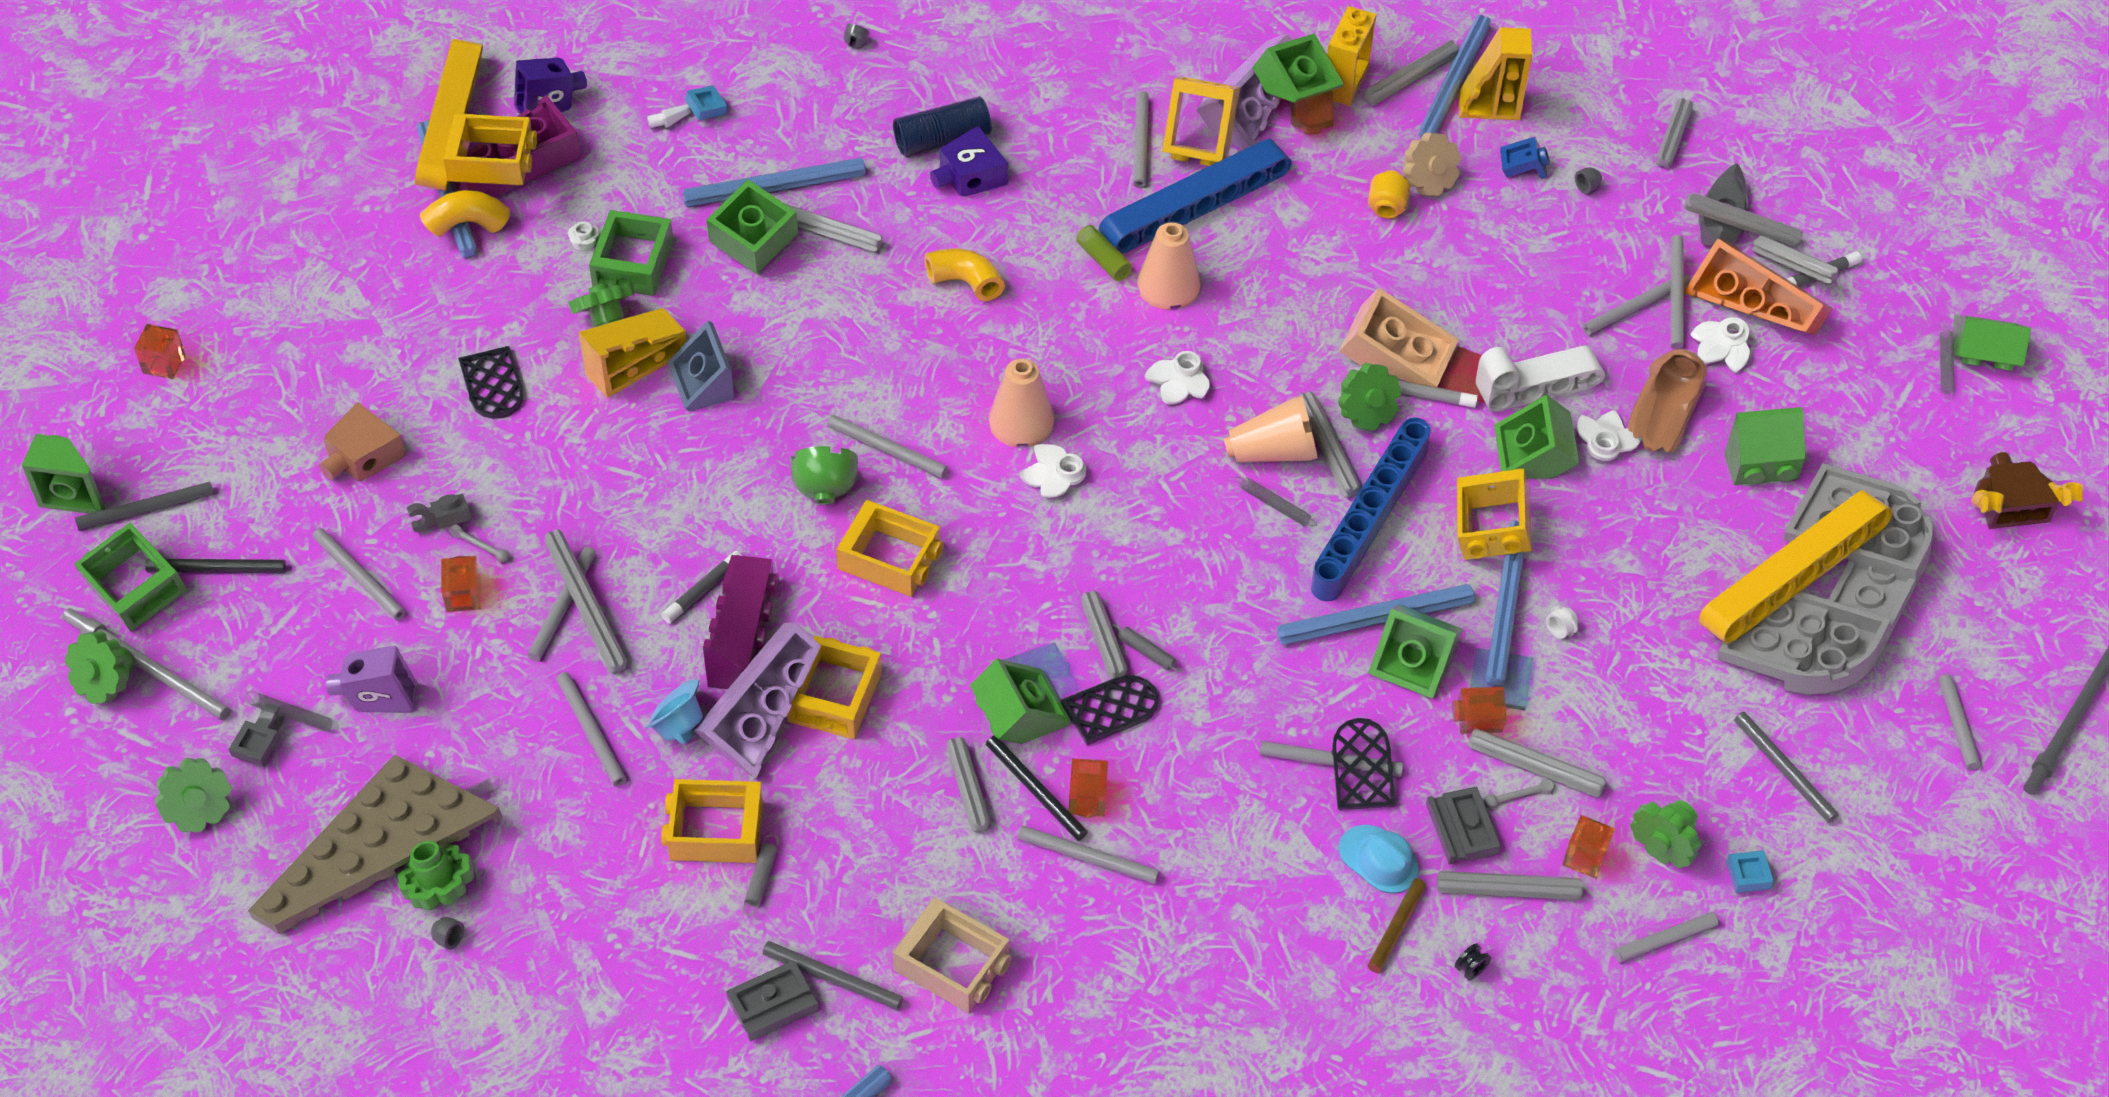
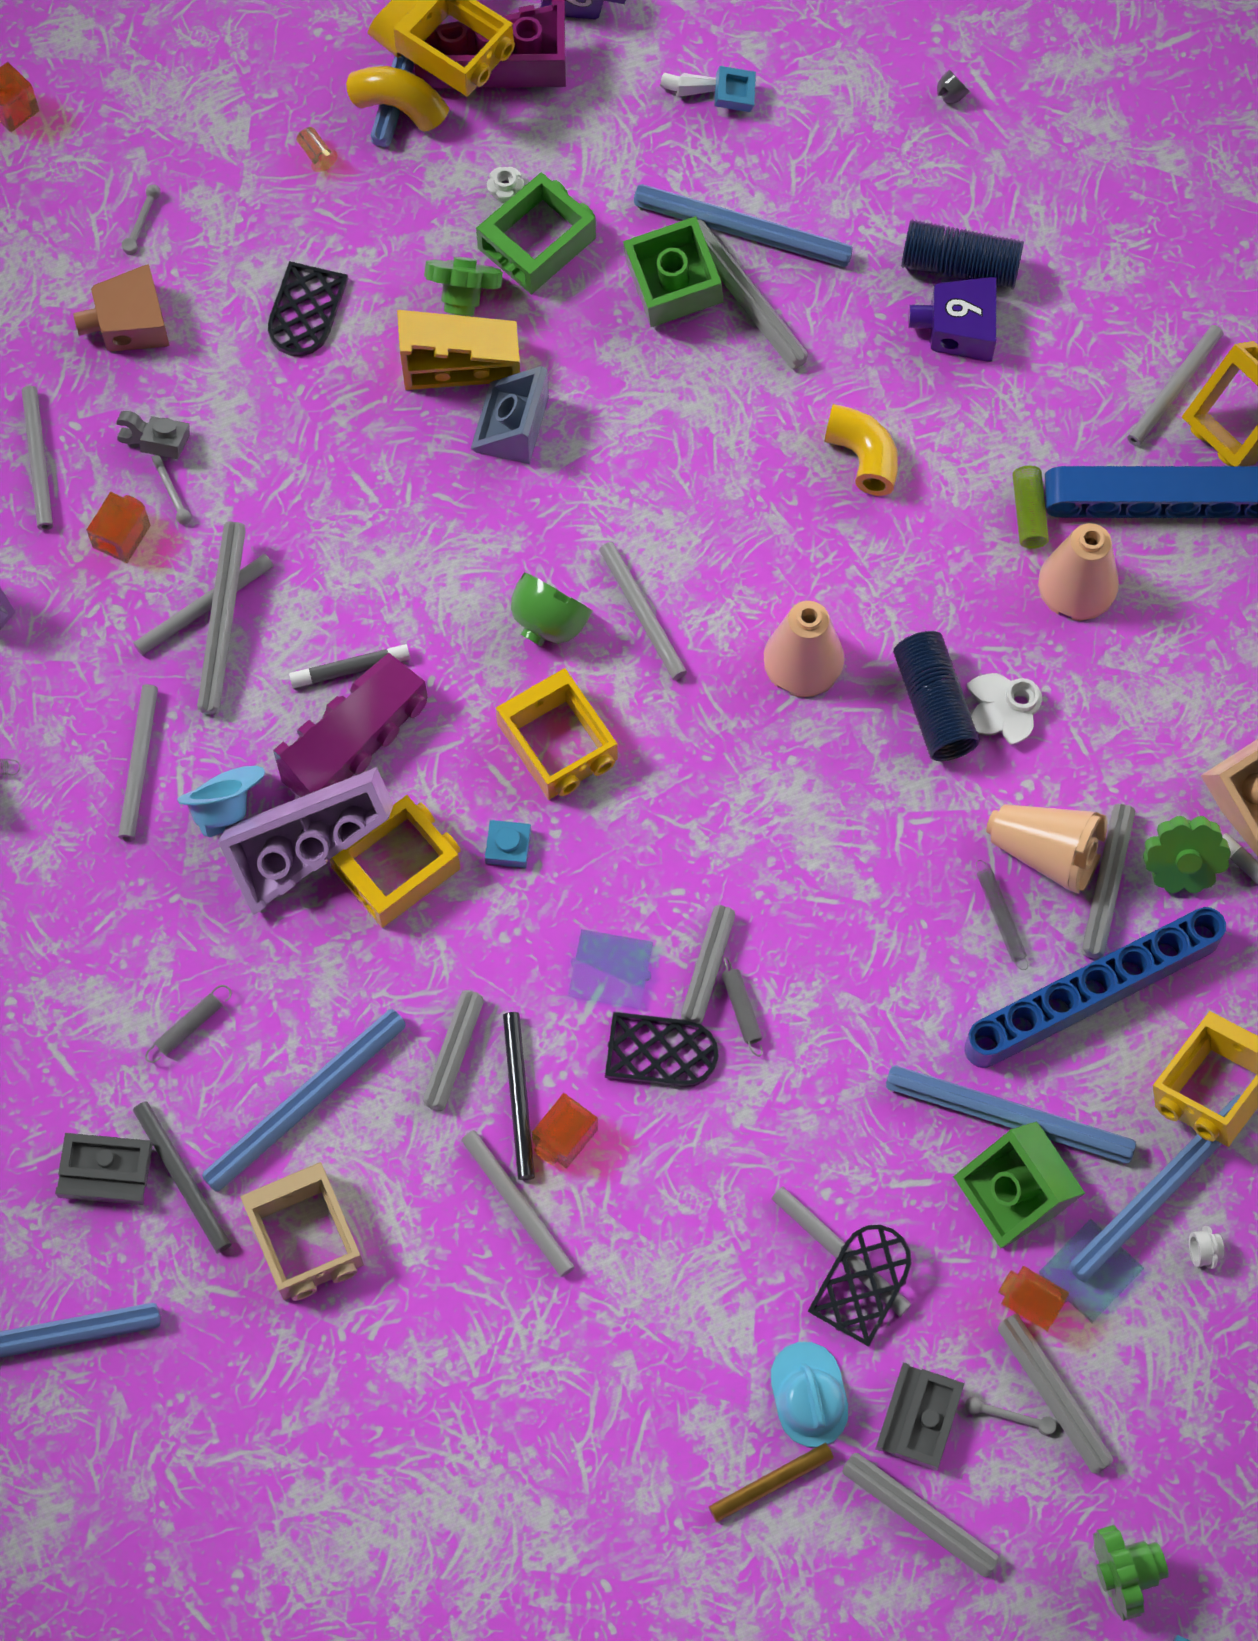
camera: 35 degrees right, 15 degrees up
(325, 405) = (129, 244): none -> light grey hinge
(425, 278) = (316, 149): none -> piece
(713, 794) = (211, 964): yellow window -> none
(884, 876) = (303, 1100): none -> medium blue axle
(905, 637) = (508, 844): none -> dark azure plate
(1020, 711) = (559, 1002): bright green slope -> none
(1052, 469) = (787, 738): white plate -> none
(1134, 393) = (939, 703): none -> dark blue piece
(1472, 961) = (814, 1576): black bush -> none
(1588, 846) = (1031, 1528): clear orange brick -> none

